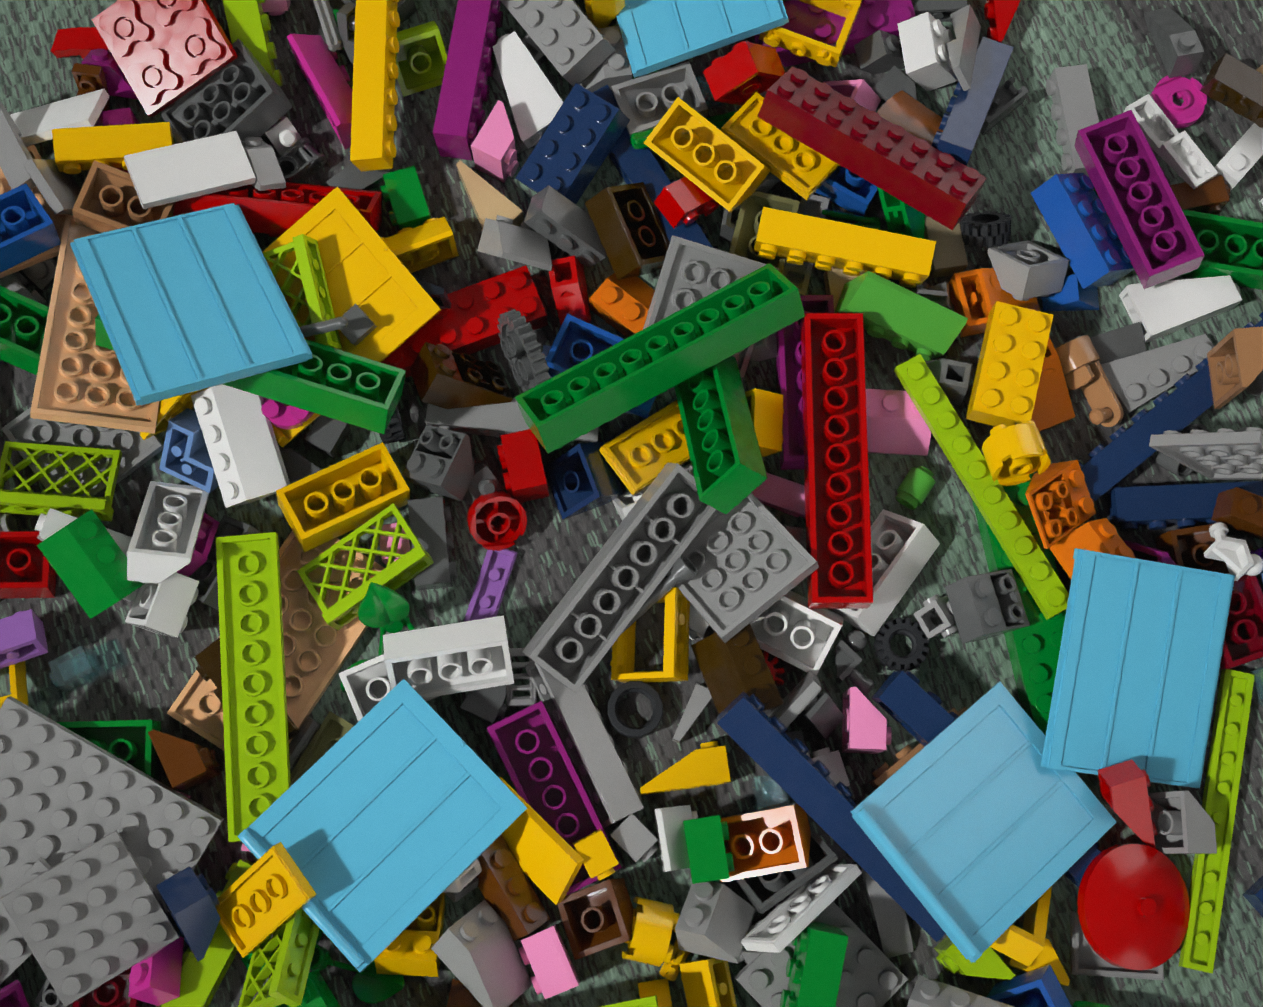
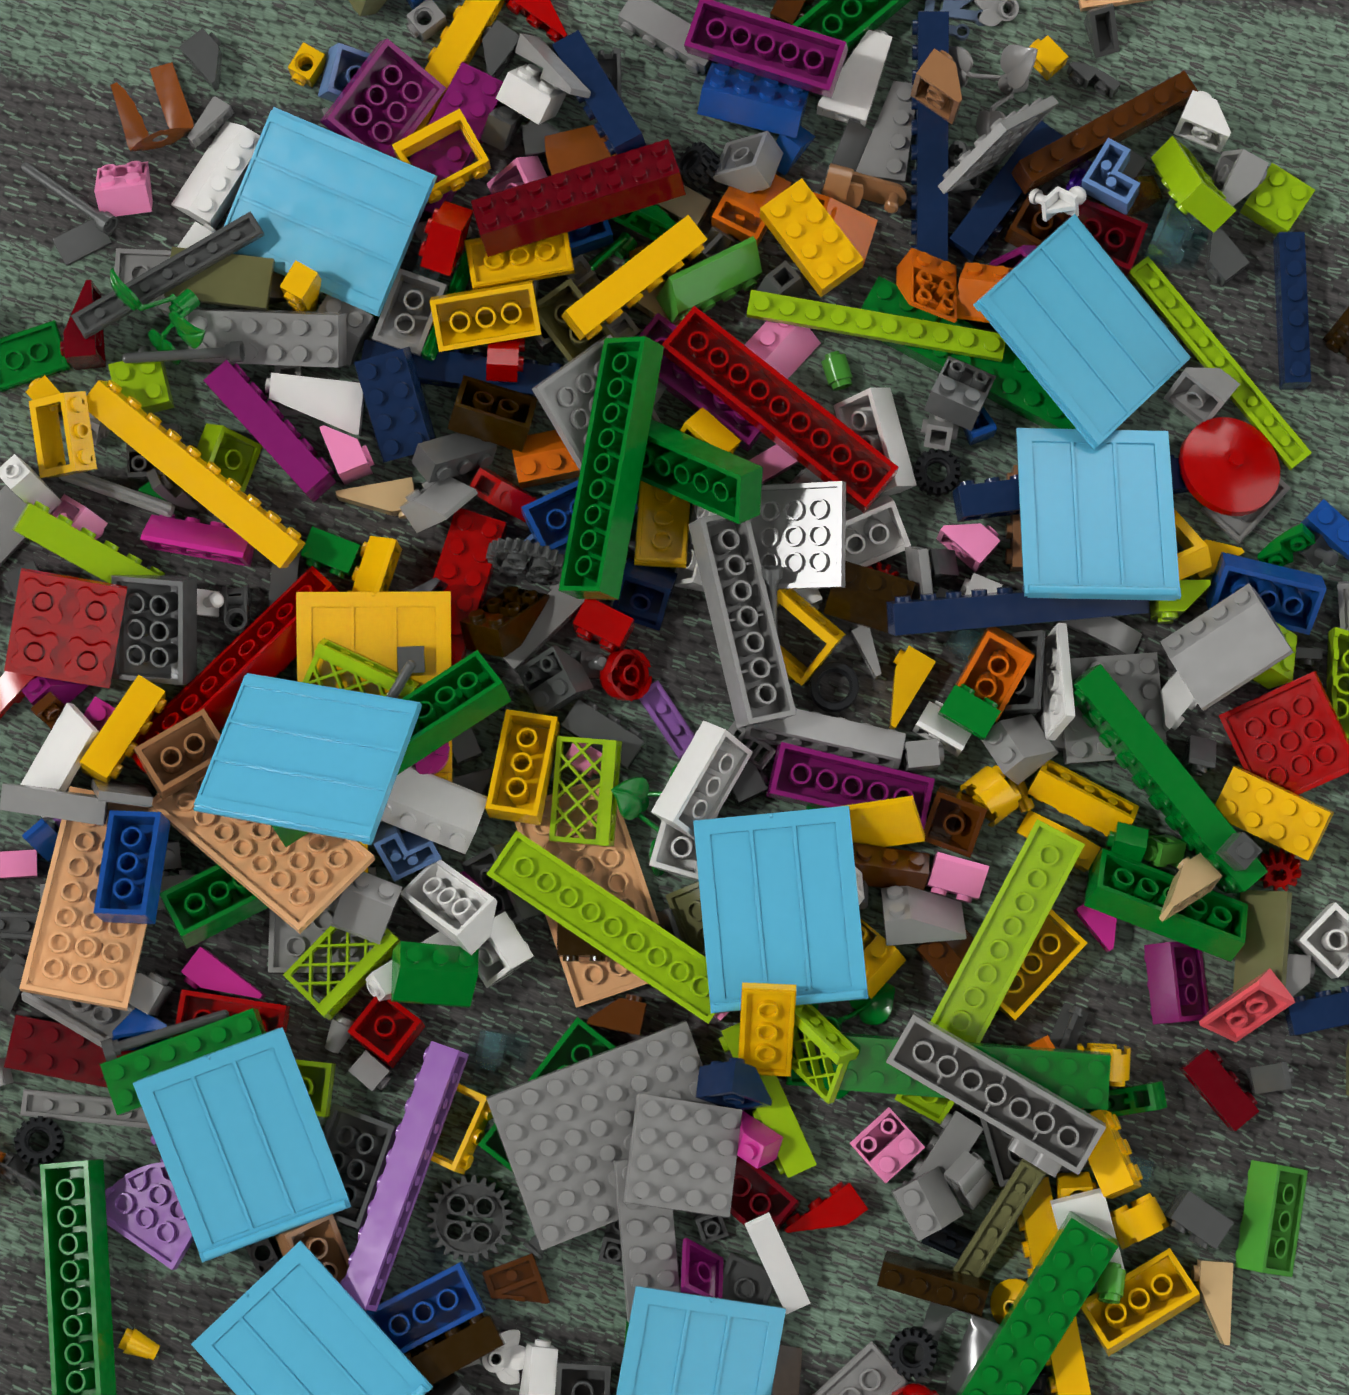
camera: 45 degrees left, 5 degrees up
(112, 462) = (367, 907): none -> light grey slope
(189, 169) = (193, 686): white tile -> none
(264, 164) = (220, 637): light grey slope -> none
(597, 855) = (915, 785): yellow brick -> none
(848, 660) = (918, 516): dark grey piece -> none
(973, 653) = (982, 430): none -> blue slope
(1015, 453) = (874, 286): yellow brick -> none
(1127, 794) = (1156, 409): red slope -> none

